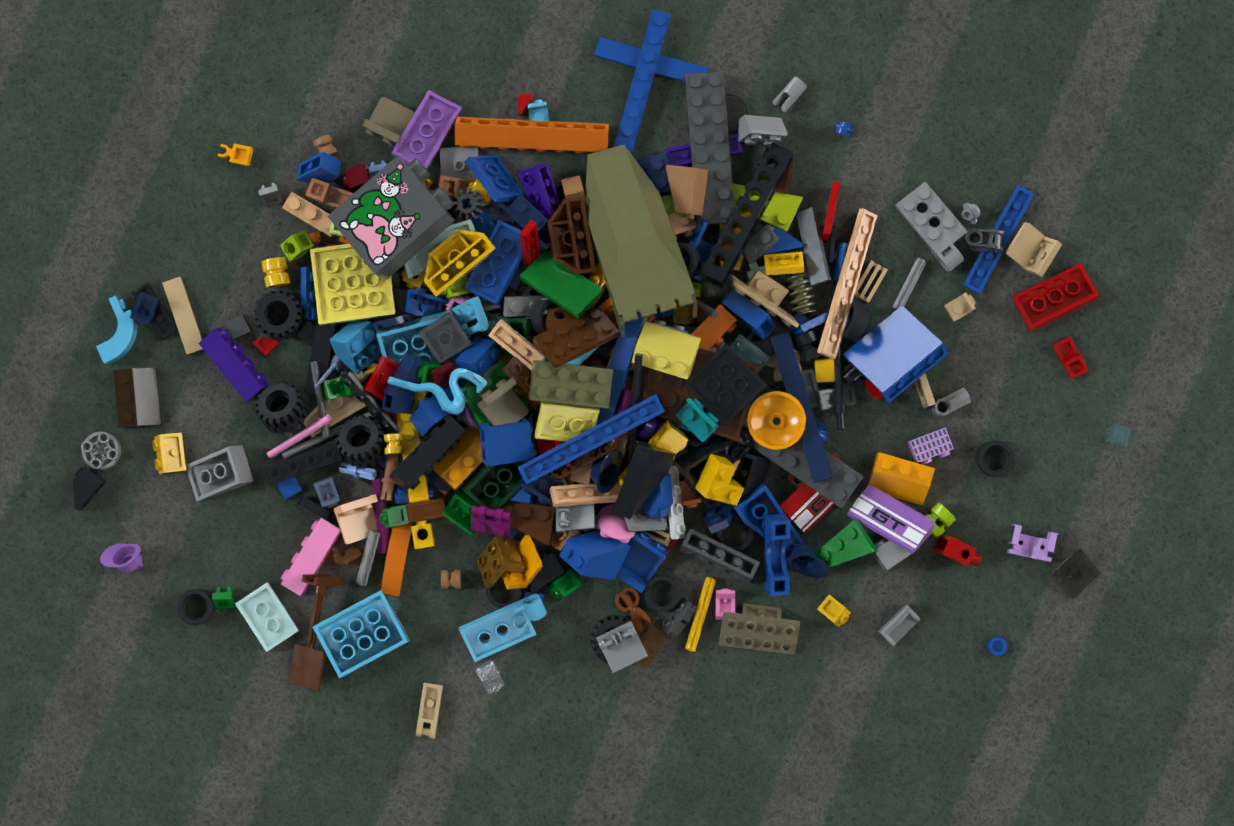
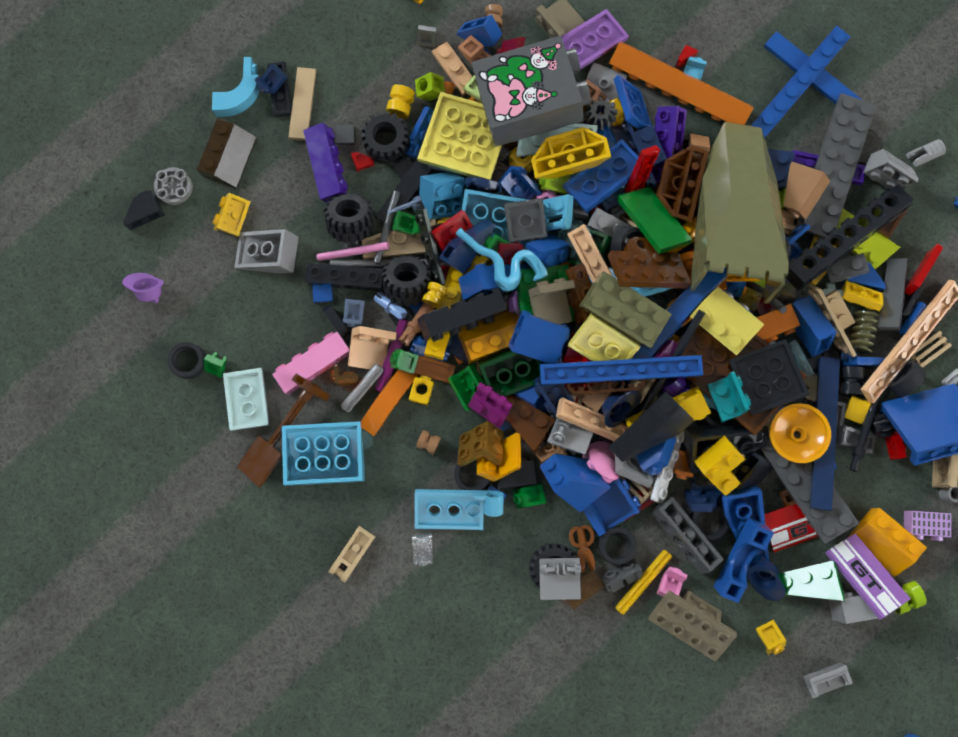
camera: 15 degrees right, 5 degrees down
(957, 551) = (913, 634): red torso -> none

